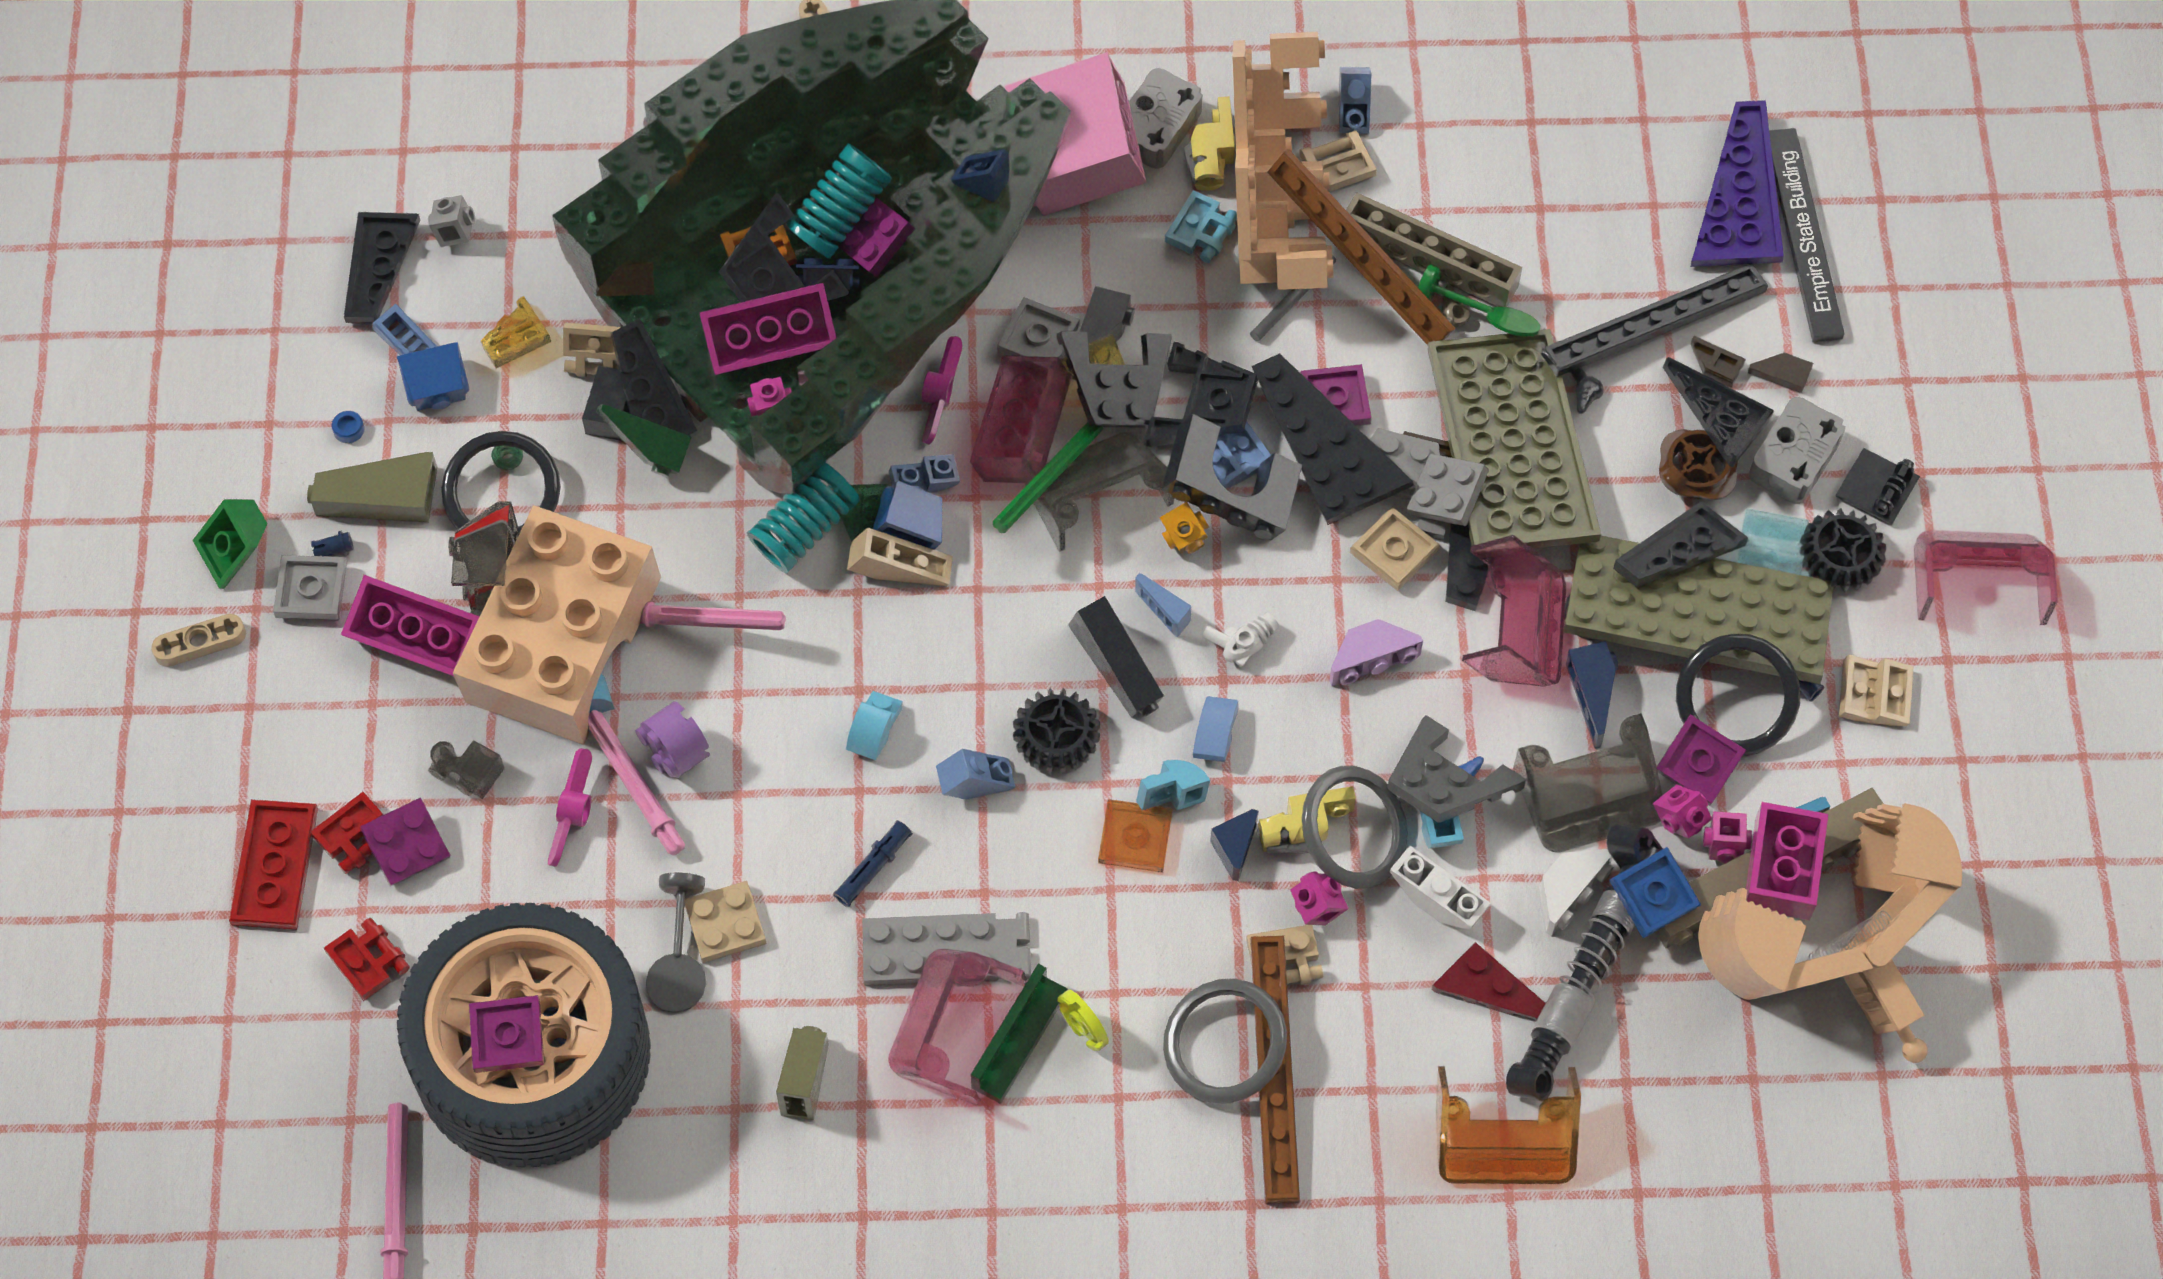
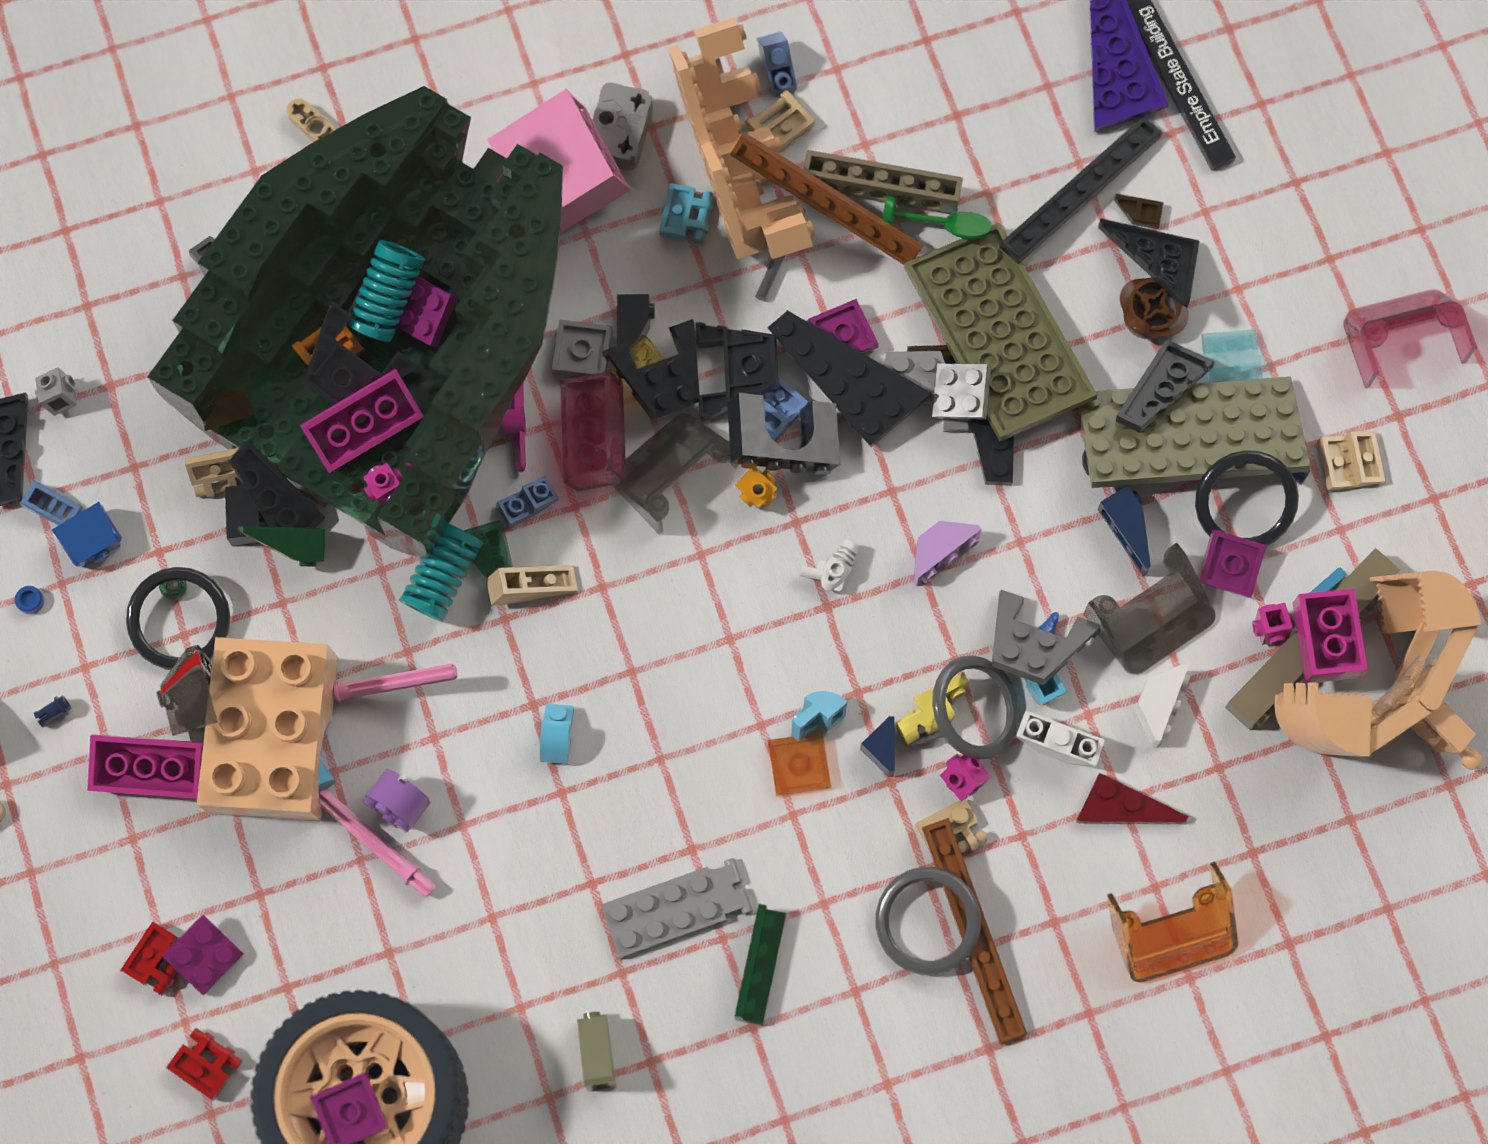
camera: 15 degrees left, 10 degrees up
(273, 864) = (98, 1005): red tile -> none
(310, 587) = (46, 753): light grey plate -> none
(377, 490) = (76, 650): olive slope -> none
(472, 772) = (238, 875): clear smoke brick -> none
(515, 335) = (144, 477): clear yellow wing -> none
(573, 804) = (331, 879): dark pink piece -> none
(677, 979) = (465, 1002): dark grey piece -> none
(724, 921) = (488, 940): tan plate -> none
(844, 268) = (383, 353): dark blue hinge -> none
(881, 853) = (598, 843): dark blue pin -> none
(910, 515) = (528, 543): torso -> none
(912, 1051) = (683, 940): clear pink windscreen -> none
(974, 774) = (653, 752): medium blue slope -> none
(984, 174) = (509, 248): dark blue slope -> none
(1032, 723) = (694, 695): black gear -> none
(1045, 477) = (630, 478): green axle -> none
(1082, 1020) = (809, 940): neon yellow tile -> none
(1116, 657) = (737, 617): black slope -> none
(1167, 607) = (762, 558): medium blue slope -> none
(1211, 148) = (672, 140): light yellow plate -> none
(1215, 729) = (835, 653): medium blue slope -> none
(1395, 548) = (931, 452): tan plate -> none
(1454, 311) = (915, 229): dark tan animal -> none
(1530, 615) = (1057, 480): clear pink windscreen -> none
(1569, 1002) = (1190, 805): black piece -> none
(1587, 389) = (1044, 267): black animal -> none
(1655, 892) = (1233, 692): blue plate -> none
(1683, 811) = (1231, 612): dark pink brick -> none
(1783, 370) = (1196, 203): dark brown tile -> none
(1797, 450) = (1236, 272): light grey axle -> none
(1847, 540) = (1279, 329): black gear -> none
(1878, 485) = (1301, 281): black hinge -> none

